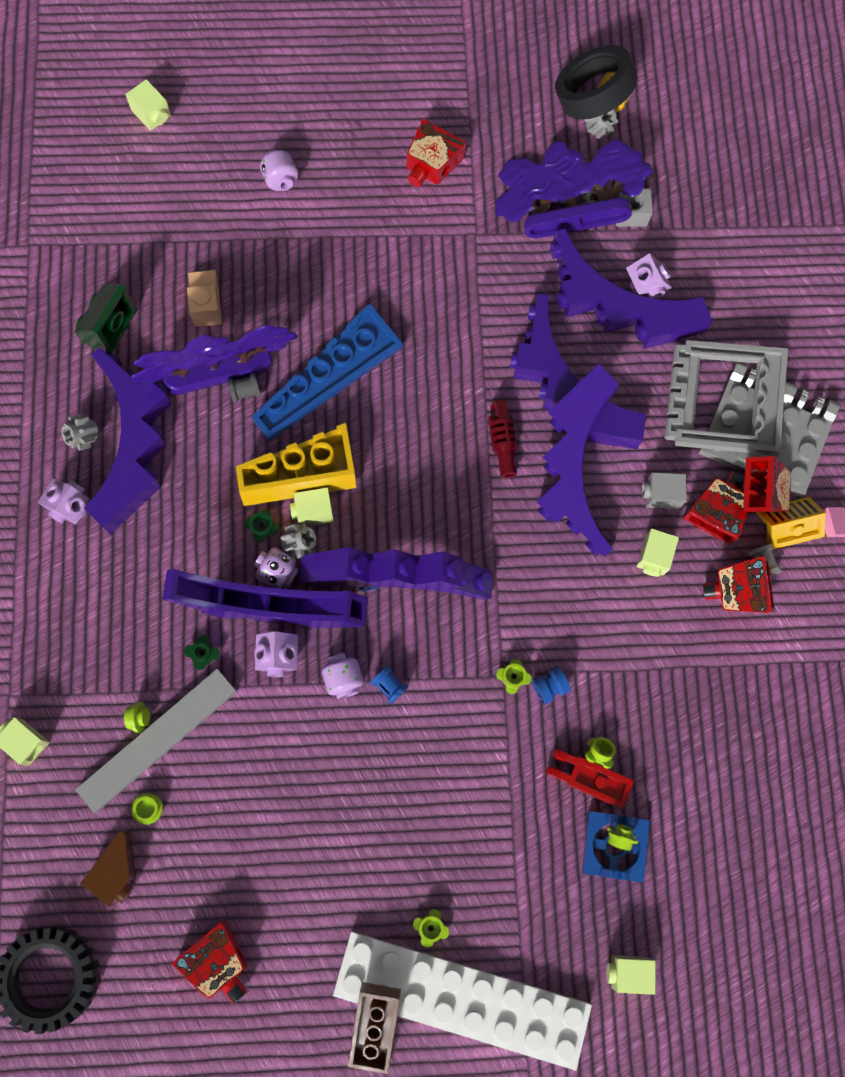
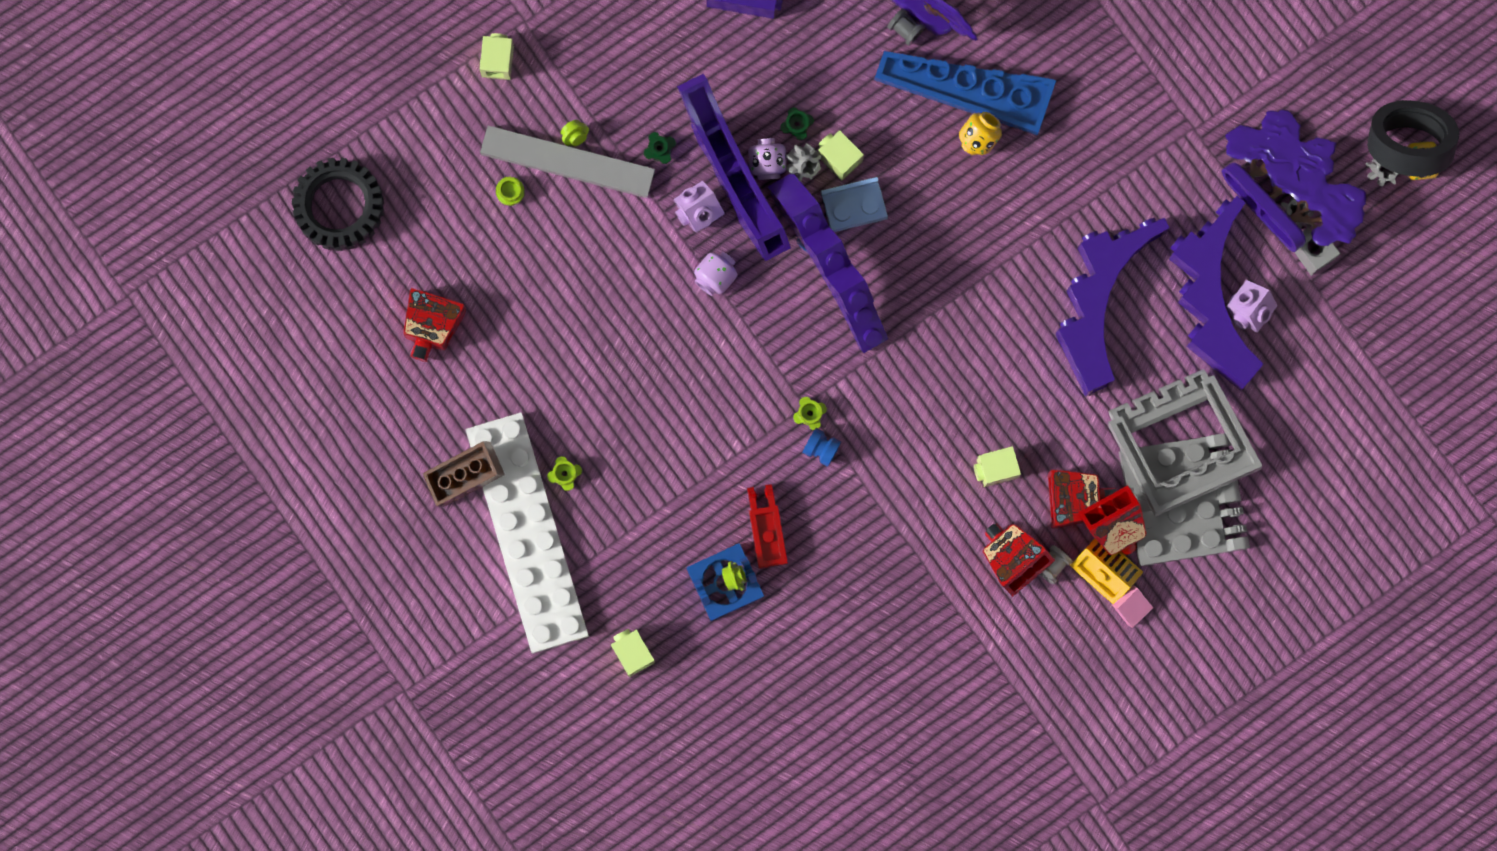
camera: 60 degrees right, 5 degrees up
(113, 872) = (447, 198): reddish brown slope -> none
(299, 468) = (872, 127): yellow wedge -> none
(361, 523) = (854, 204): none -> light blue plate
(373, 387) = (980, 133): none -> yellow head
(389, 684) = (734, 315): blue bush -> none
(433, 154) = (1240, 40): torso -> none
(503, 438) = (1012, 274): dark red hinge -> none
(576, 416) = (993, 360): dark purple arch -> none
(601, 752) = (794, 522): lime plate -> none
(664, 490) = (1058, 440): light grey brick -> none

